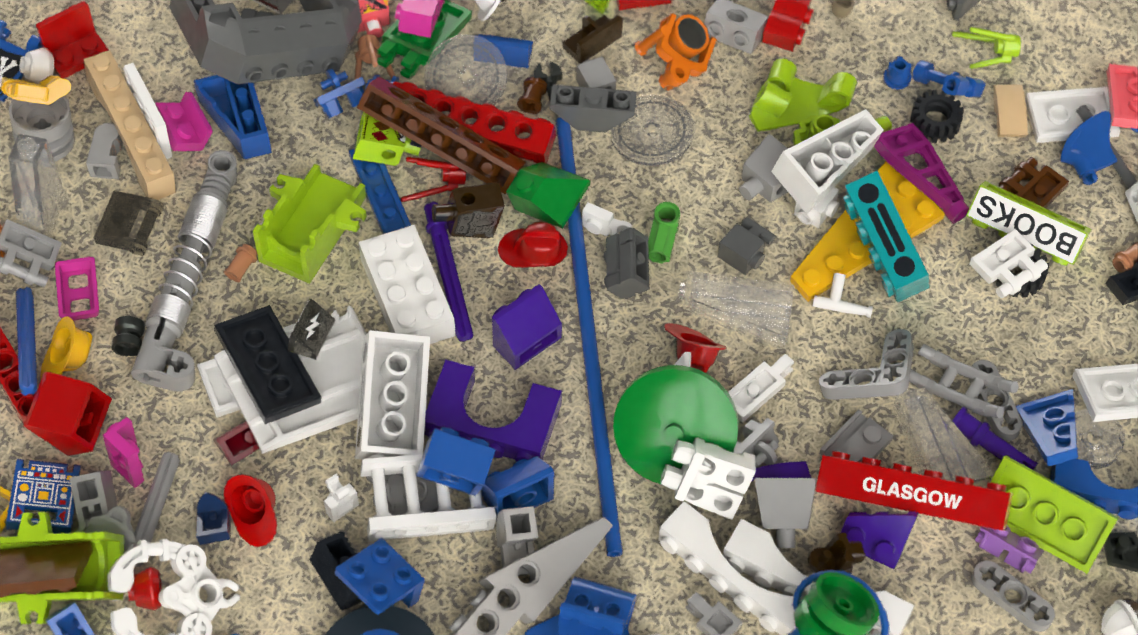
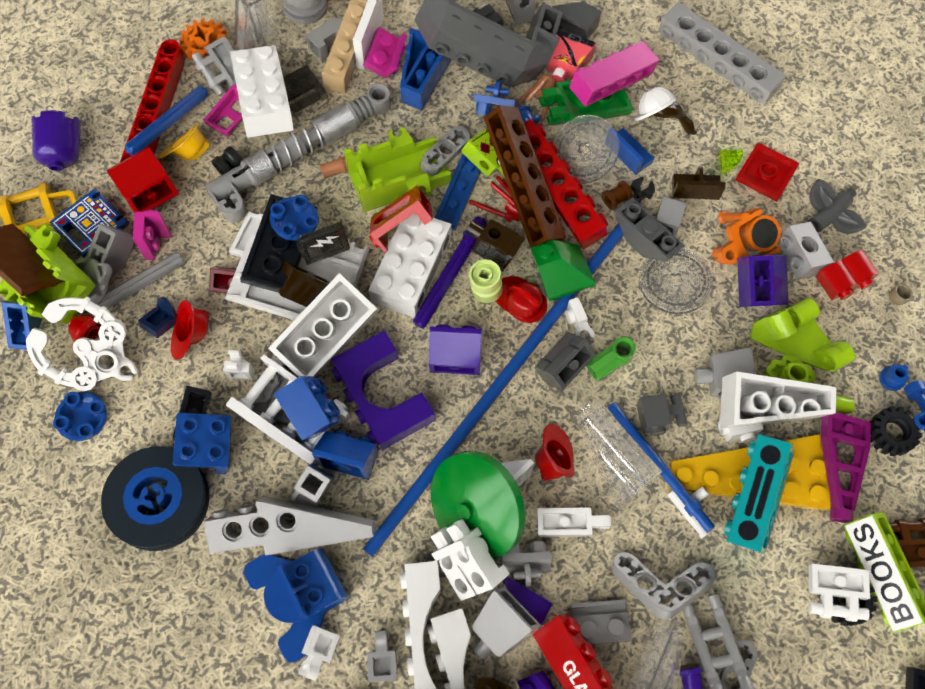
camera: 45 degrees right, 10 degrees up
(104, 240) = (261, 91): none -> white brick
(263, 326) = (293, 217): none -> blue dish
(331, 177) = (444, 159): none -> light grey beam
(336, 377) = (301, 284): none -> dark brown panel
(375, 227) = (417, 204): none -> panel
(492, 251) = (486, 281): none -> yellowish green wheel
(724, 75) = (762, 280): none -> dark purple slope
(842, 294) = (692, 506): none -> blue bar

